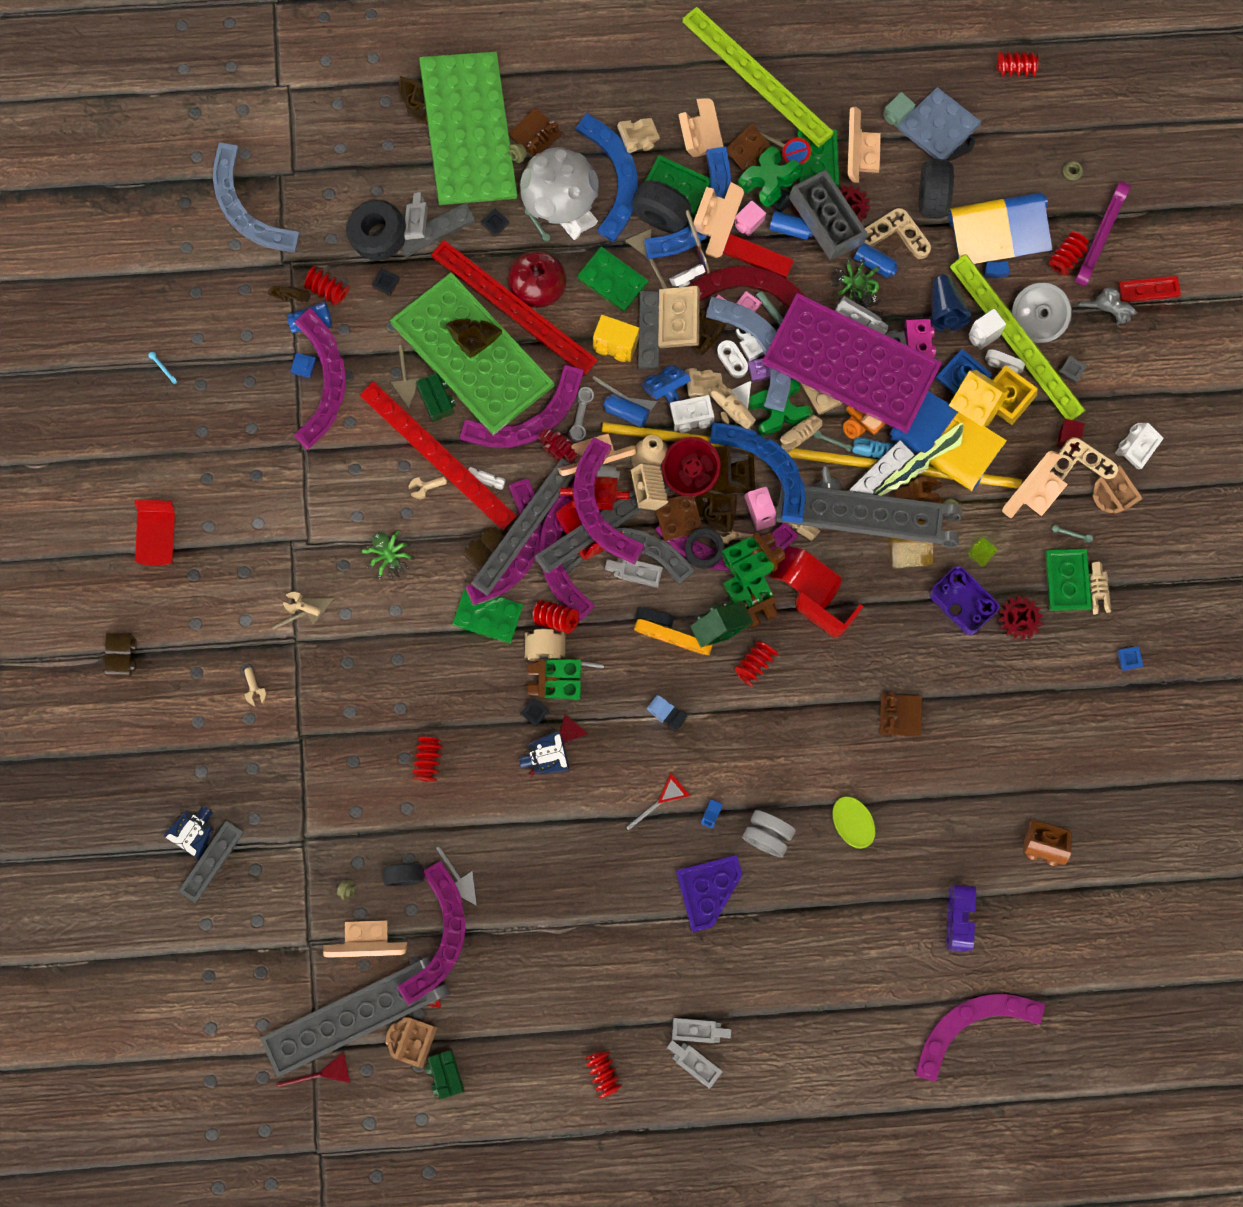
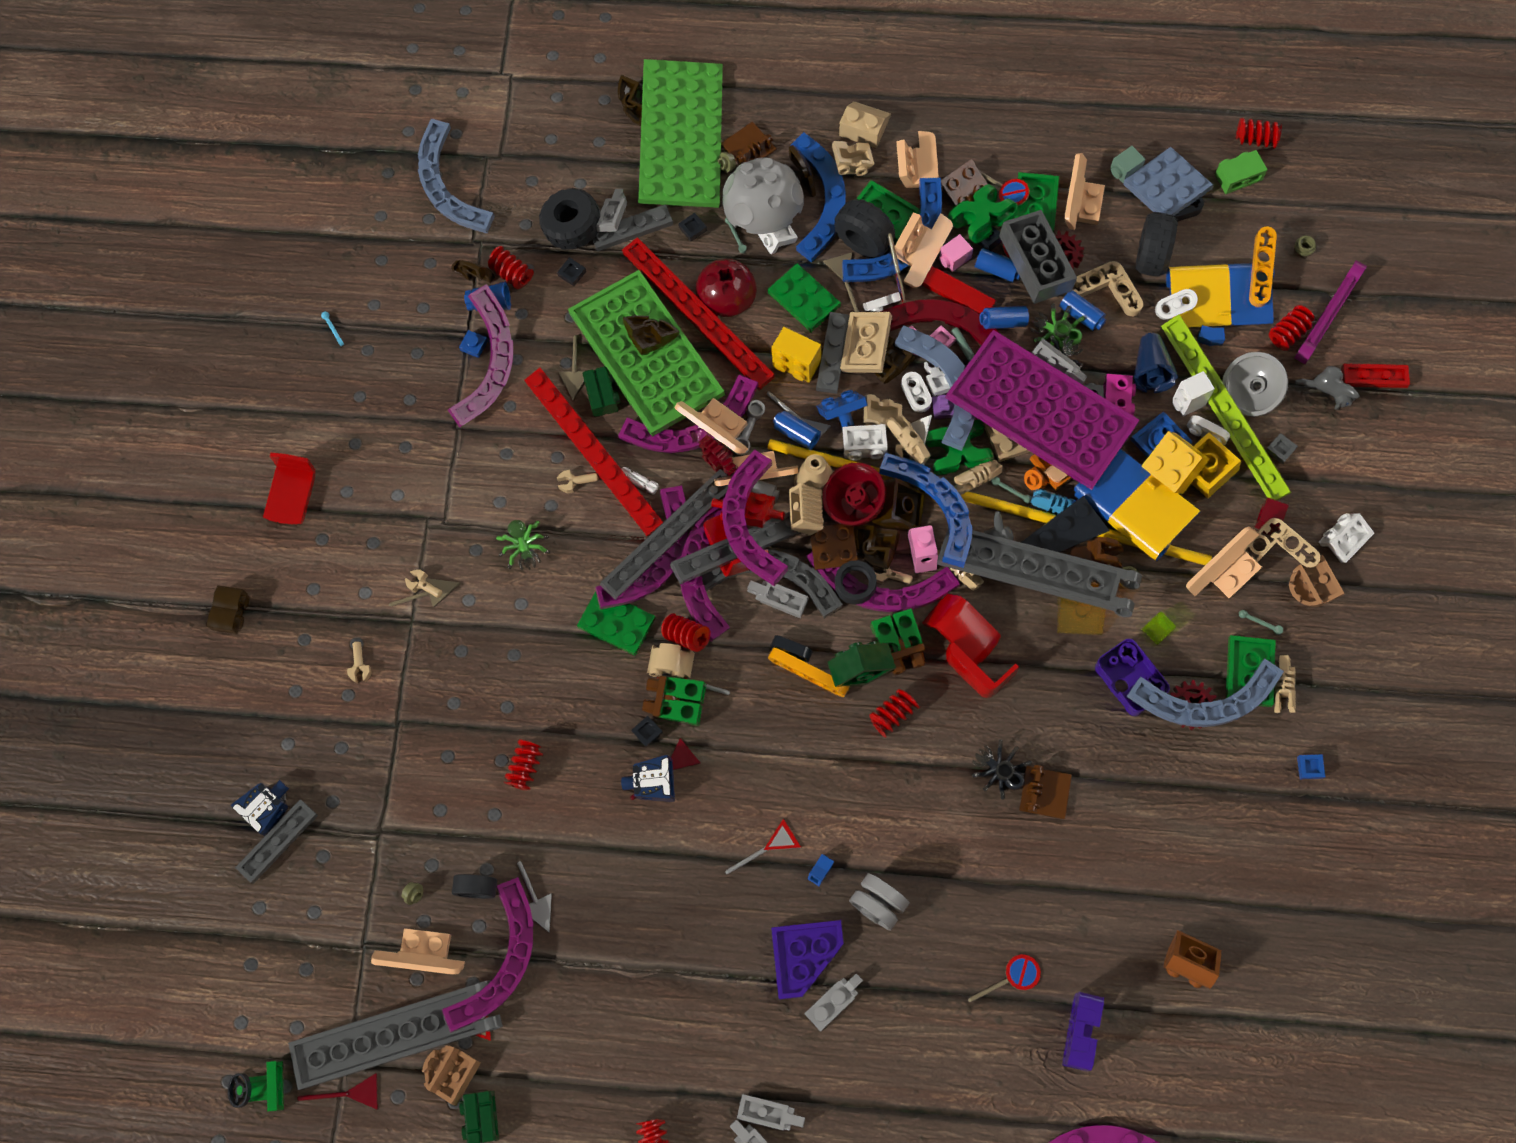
camera: 20 degrees right, 5 degrees down
(240, 1081) = (259, 1088): none -> green piece
(482, 549) = (618, 551): dark brown brick -> none
(553, 414) = (718, 422): none -> light nougat plate
(597, 158) = (806, 174): none -> dark brown brick
(643, 97) = (863, 124): none -> tan slope
(667, 713) = (789, 753): leg -> none
(740, 927) = (833, 1002): none -> light grey hinge
(752, 558) = (905, 599): green hips -> none
(758, 77) = (985, 116): lime plate -> none
(804, 276) = (1004, 317): none -> blue brick
(853, 822) = (976, 903): lime piece -> none
(862, 701) = (1003, 770): none -> animal
(901, 877) = (1021, 973): none -> piece
(921, 461) = (1103, 522): yellowish green sword -> none
(961, 245) = (1175, 304): none -> white plate
(1005, 104) = (1240, 171): none -> bright green brick
(1032, 198) = (1260, 266): none -> light orange beam
(1035, 624) = (1207, 713): none -> sand blue plate

